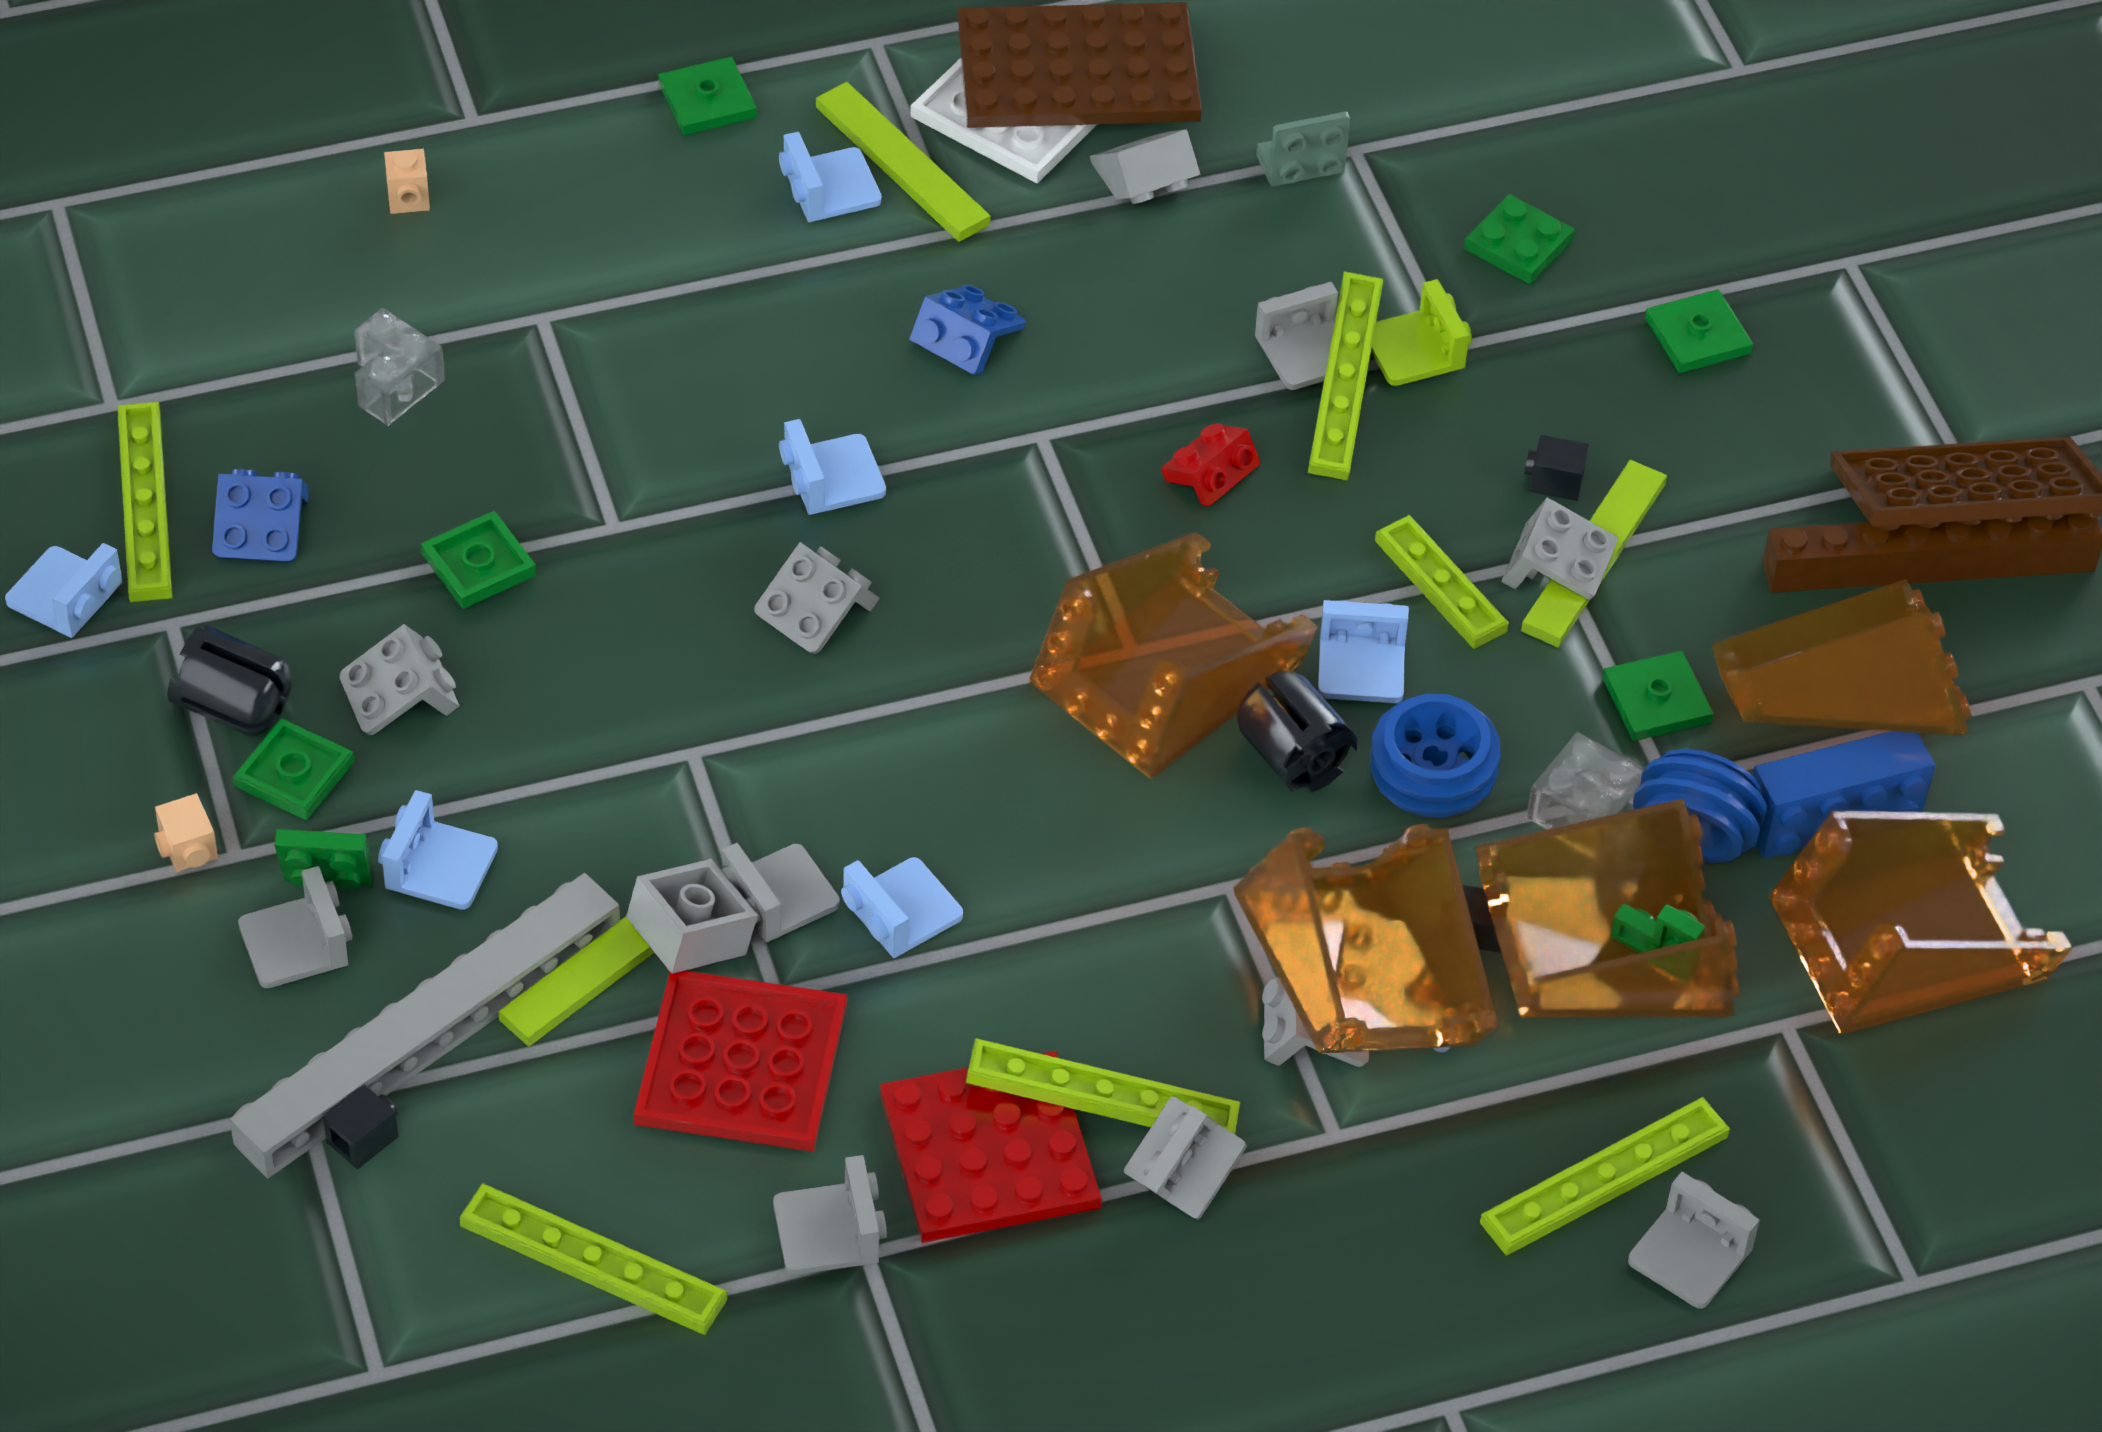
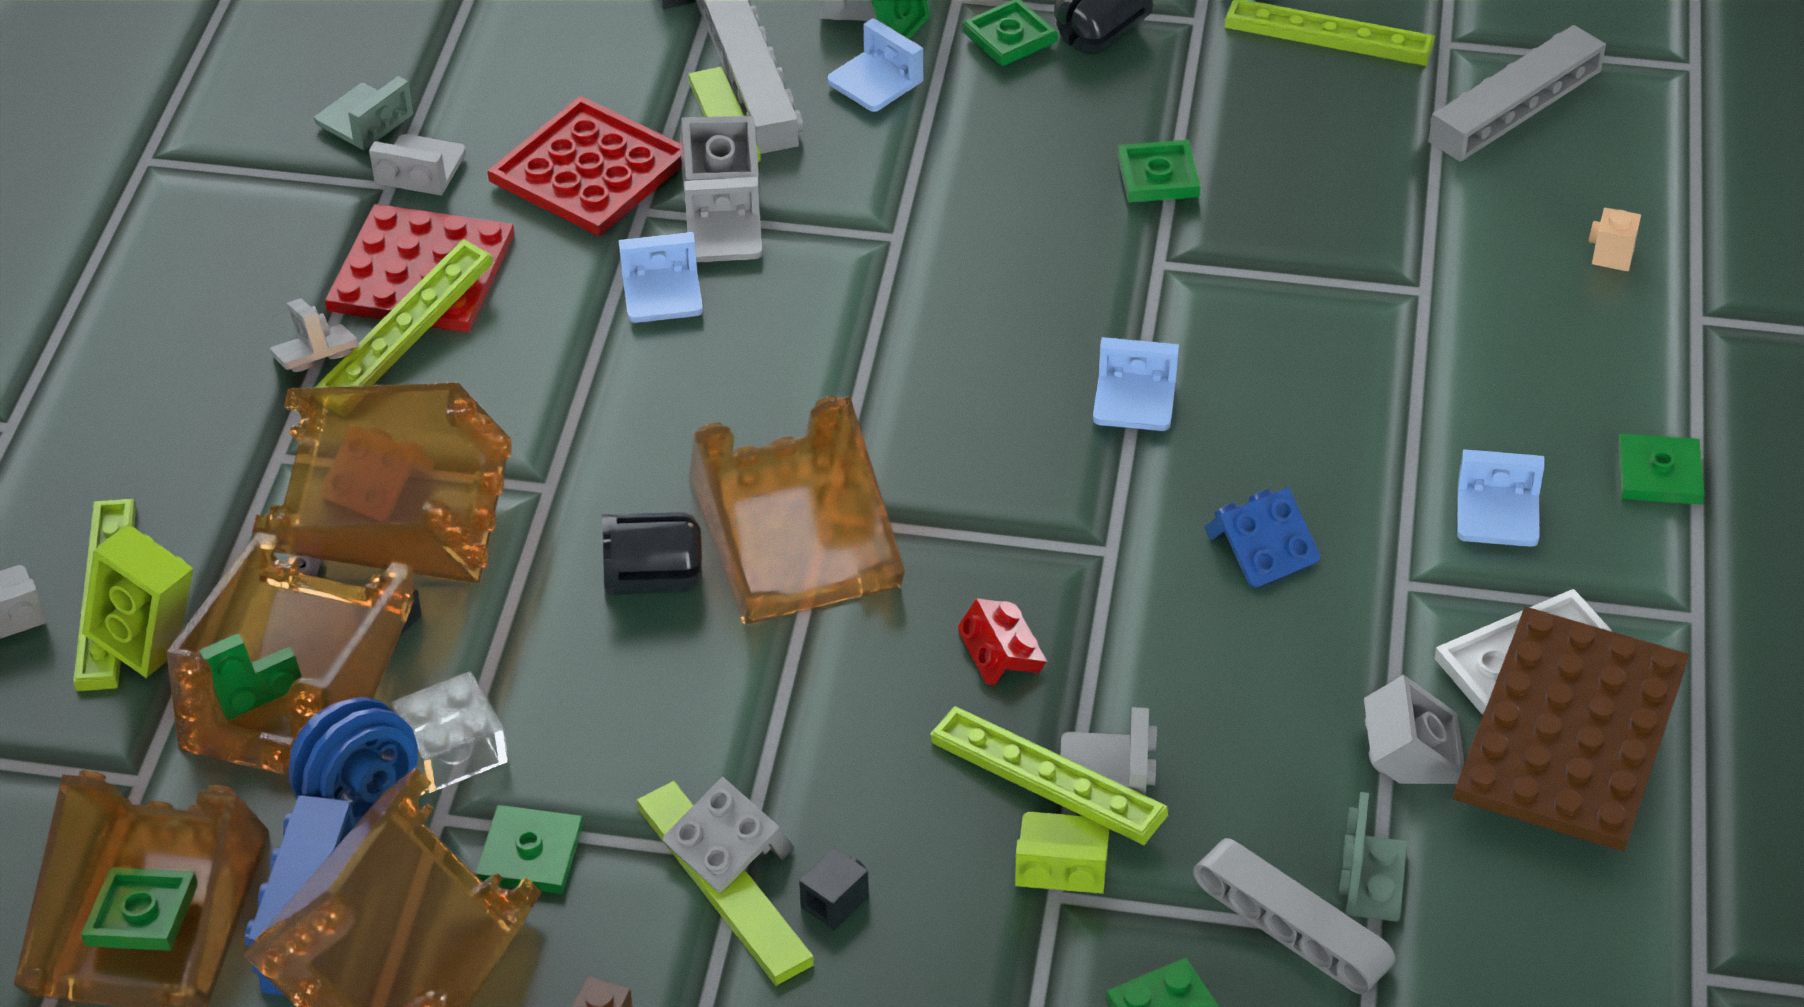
camera: 120 degrees right, 5 degrees down
(195, 310) = (1516, 93): none -> light grey brick
(258, 516) = (1287, 68): blue bracket -> none
(396, 364) = (1394, 180): clear brick -> none
(397, 677) = (1057, 102): light grey bracket -> none
(593, 1259) = (495, 57): lime tile -> none
(774, 1319) = (367, 113): none -> sand green bracket
(812, 597) = (1004, 341): light grey bracket -> none
(903, 161) = (1509, 572): lime tile -> none
(1362, 651) = (710, 649): light blue bracket -> none
(1380, 187) = (1294, 916): none -> light grey beam
(1419, 758) = (541, 634): blue wheel -> none
(1441, 582) = (765, 752): lime tile -> none
(1648, 1058) = (136, 599): none -> lime brick
(1930, 907) = (140, 909): none -> green plate

